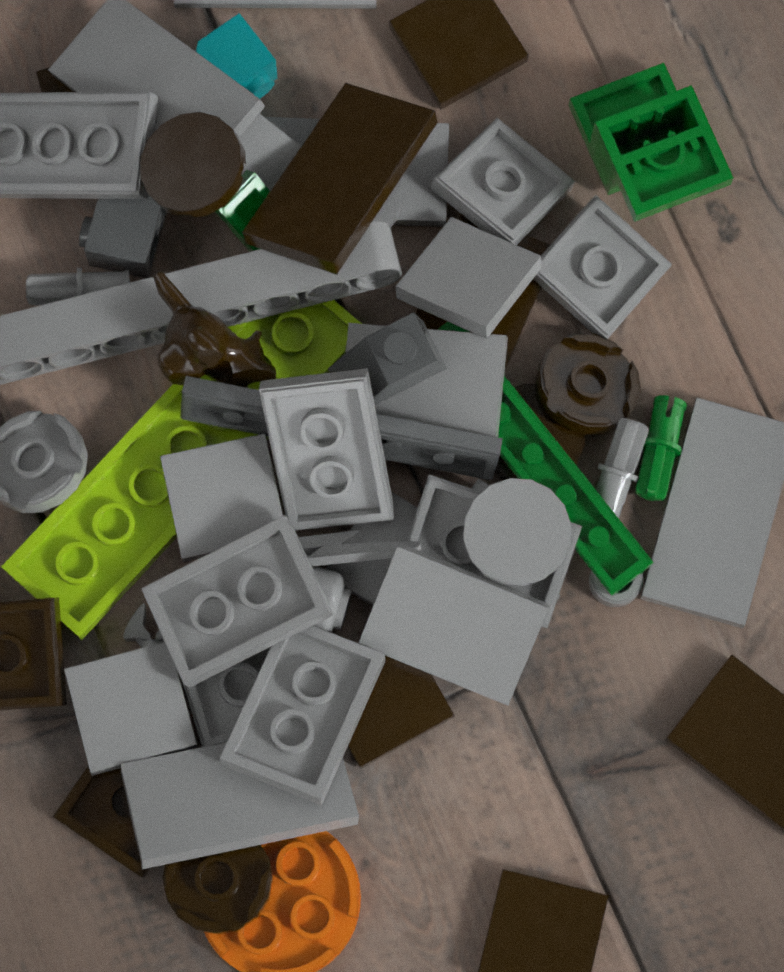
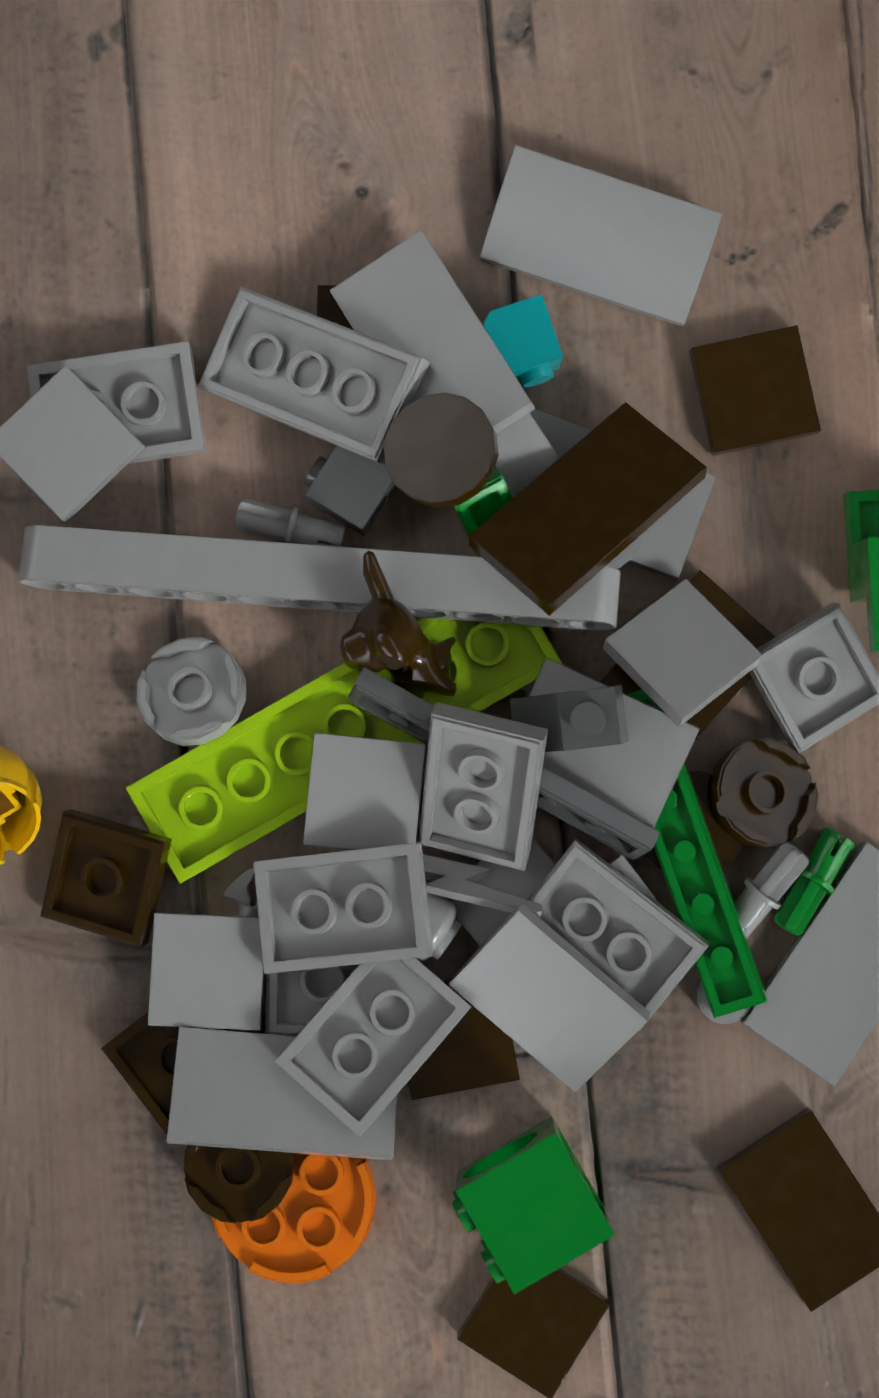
camera: 20 degrees right, 10 degrees up
(500, 813) = (530, 1206): none -> green brick
(502, 183) = (748, 558): light grey tile -> none
(517, 532) = (642, 933): light grey tile -> none

